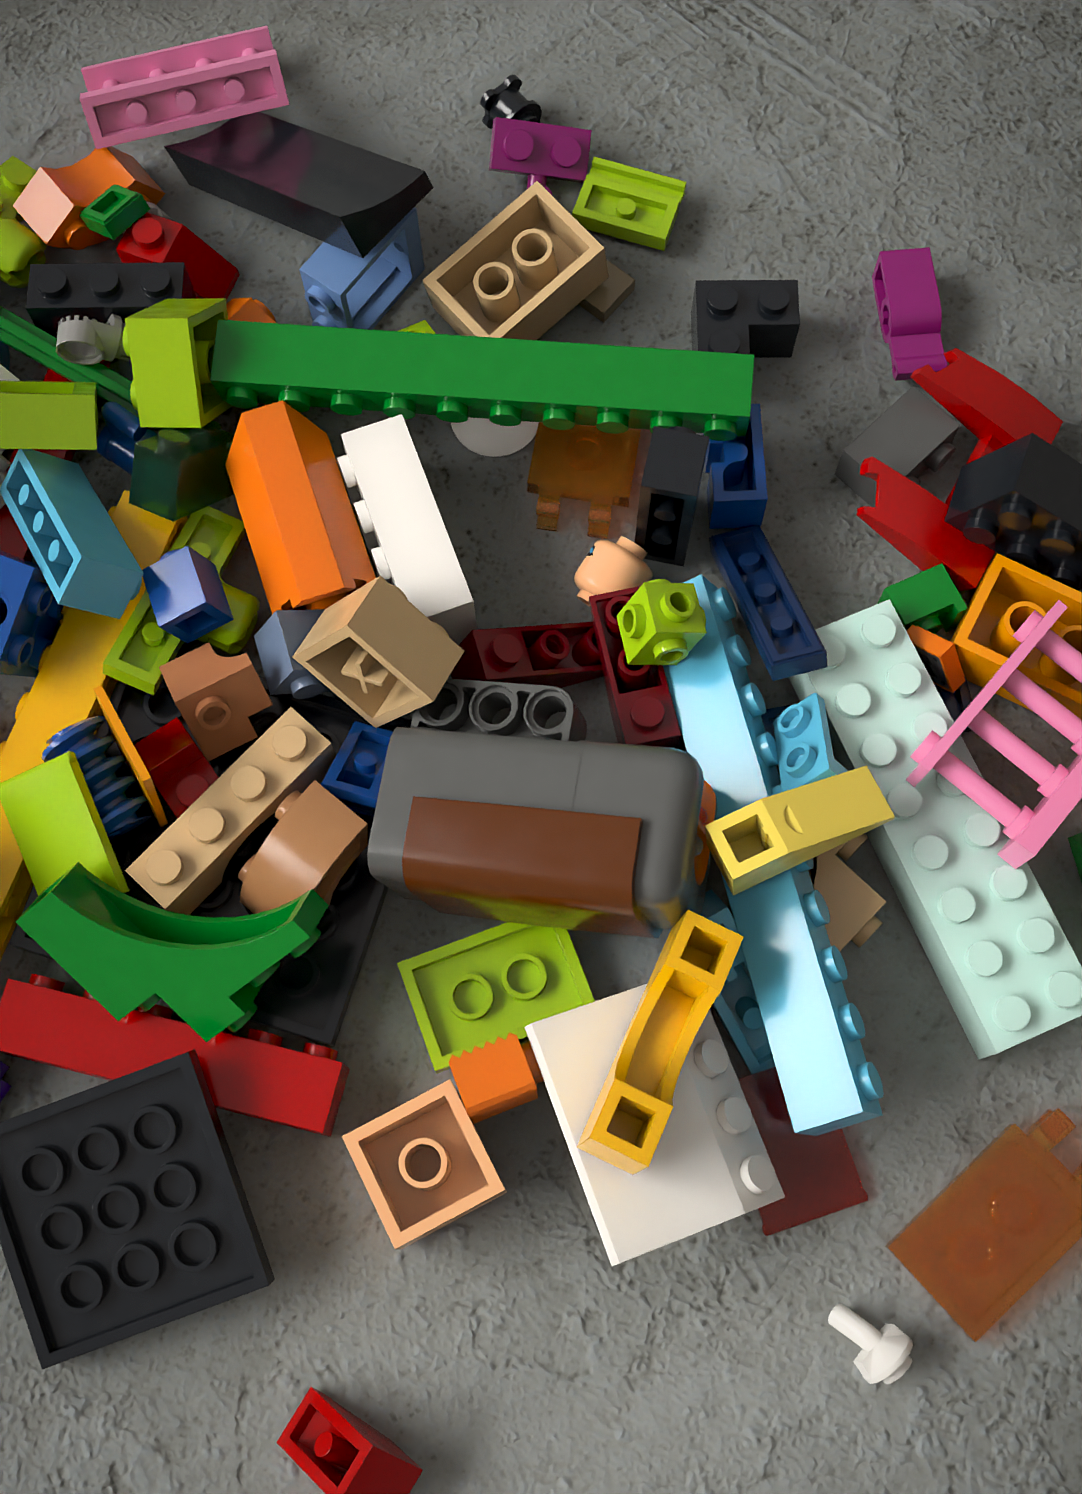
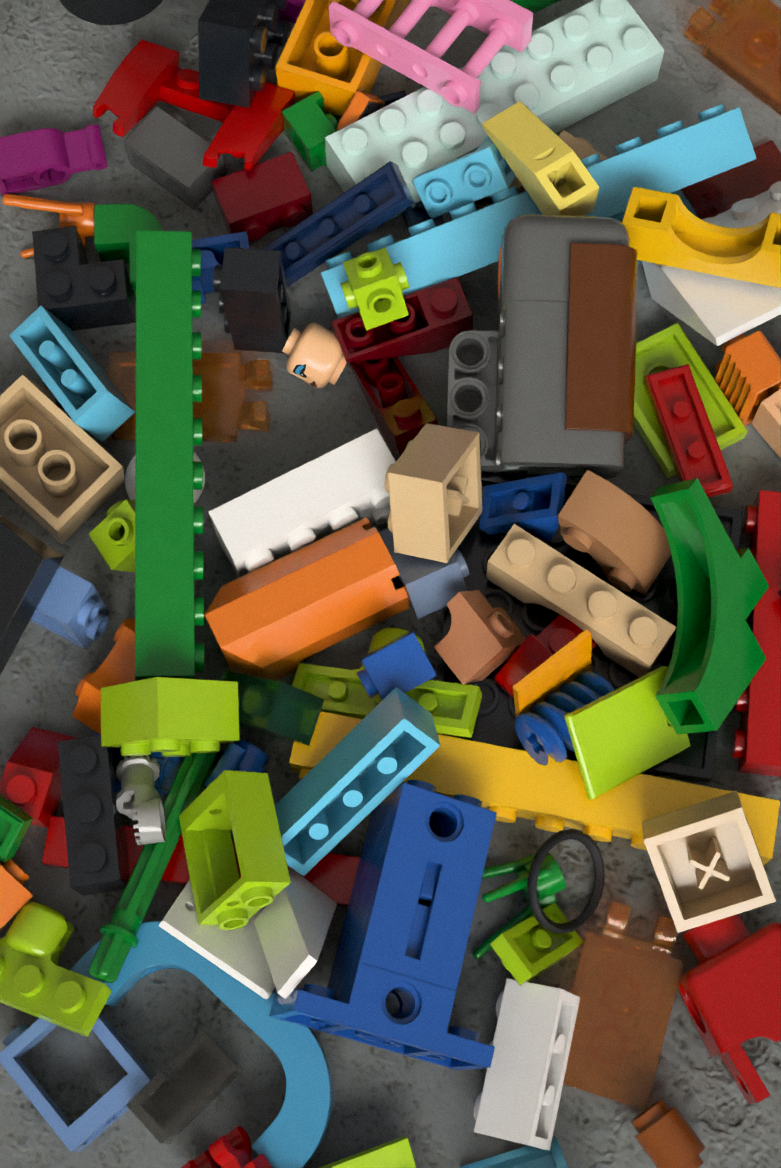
camera: 95 degrees left, 0 degrees up
(438, 991) = (687, 429): none -> red tile
(621, 306) = (71, 374): none -> medium azure brick
(795, 394) = (116, 233): none -> green brick
(825, 343) = (70, 214): none -> orange plant
(830, 540) = (263, 197): none -> dark red brick

